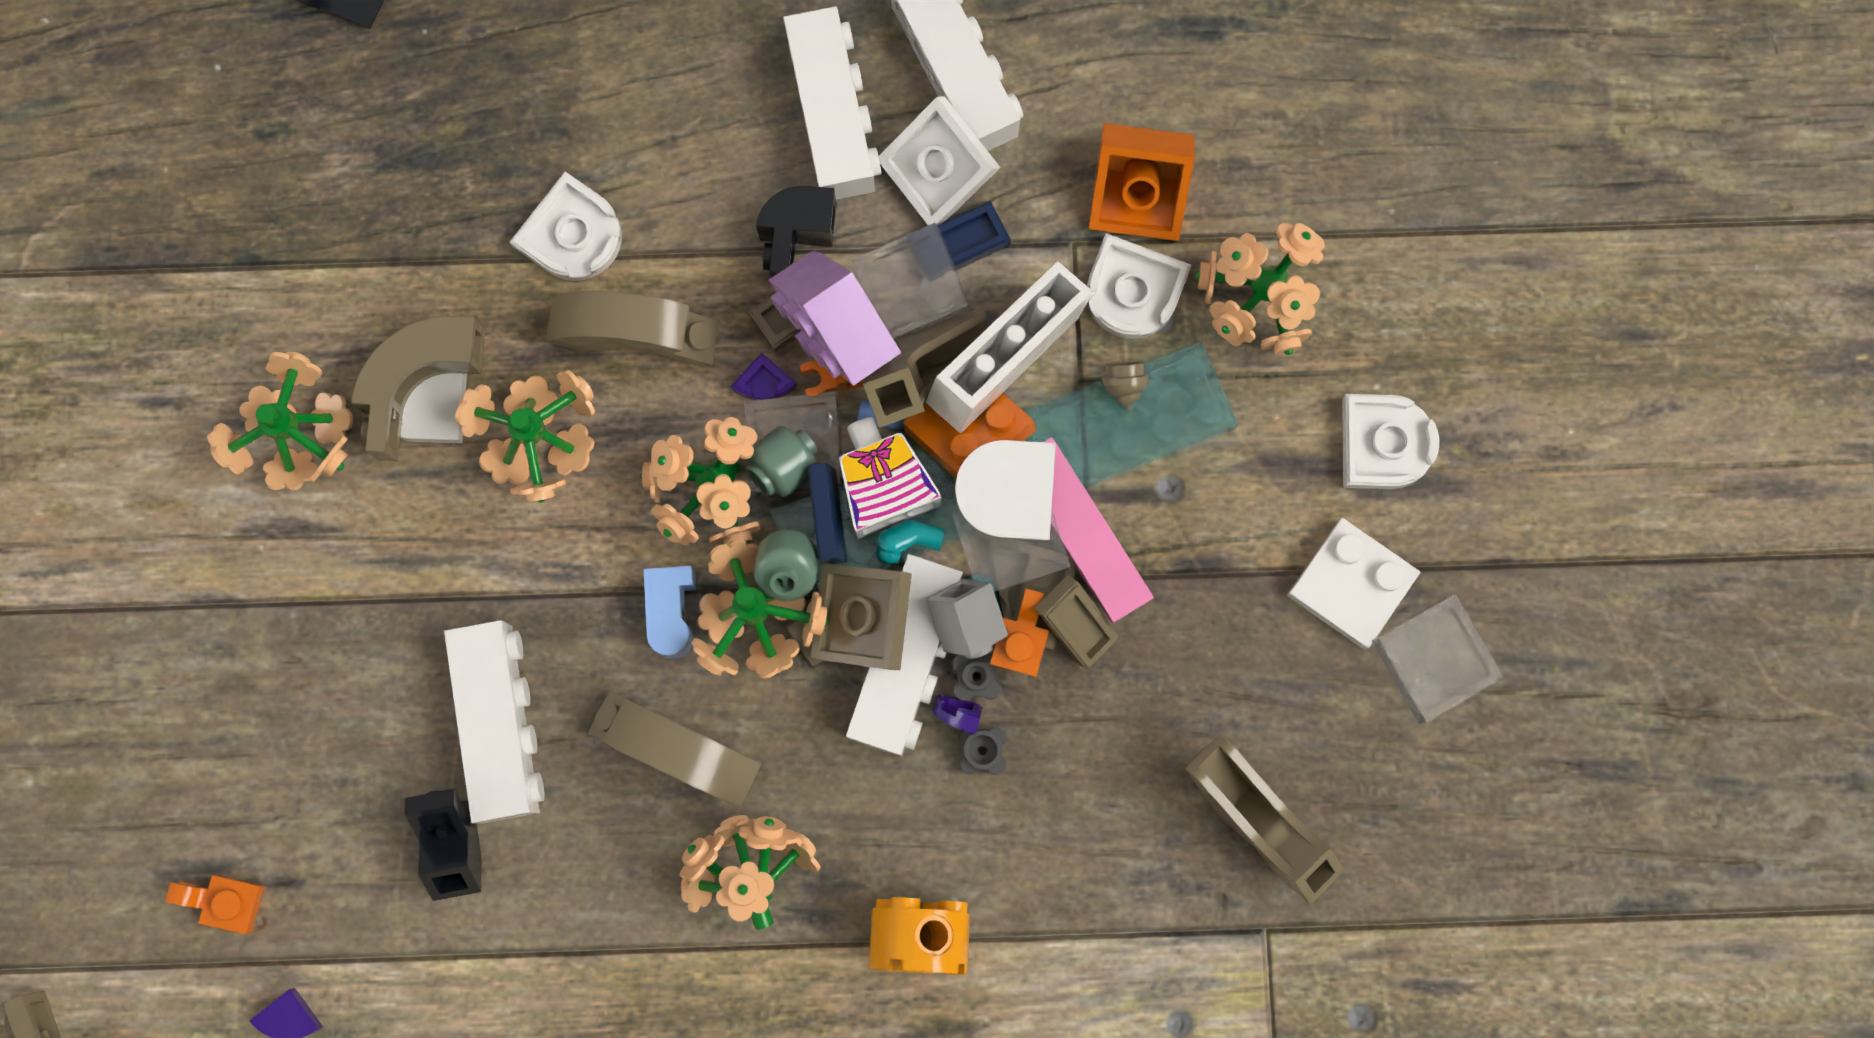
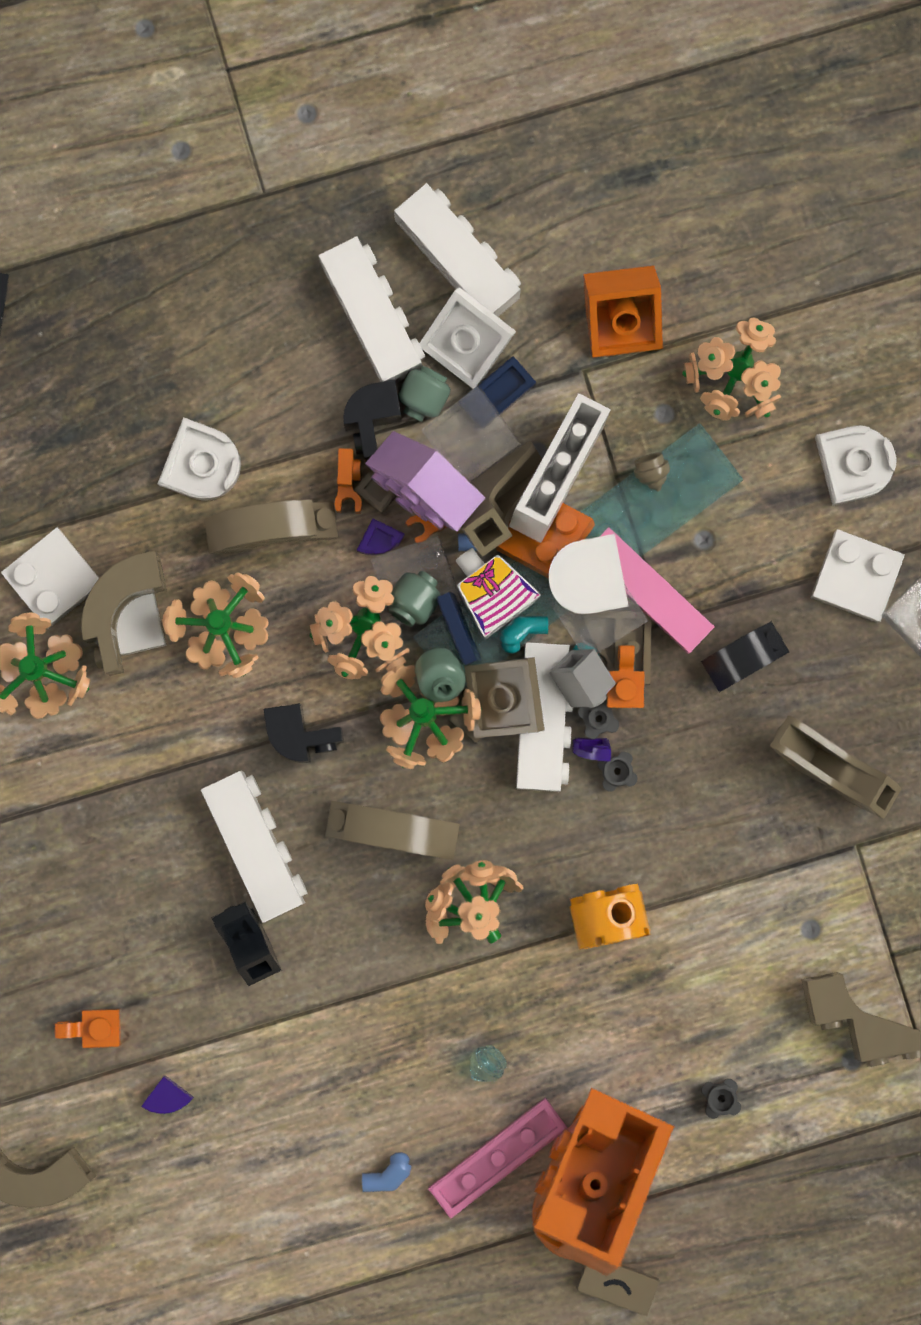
camera: 15 degrees left, 5 degrees up
(343, 321) = (51, 577): none -> white plate
(579, 594) = (289, 737): none -> black brick
(665, 609) = (362, 744): light blue leg -> none
(746, 287) = (348, 471): none -> orange plate
(867, 216) = (424, 393): none -> sand green head
(1077, 622) = (662, 659): dark tan tile -> none
(1134, 288) = (638, 394): white tile -> none
(1183, 646) = (745, 656): none -> black brick

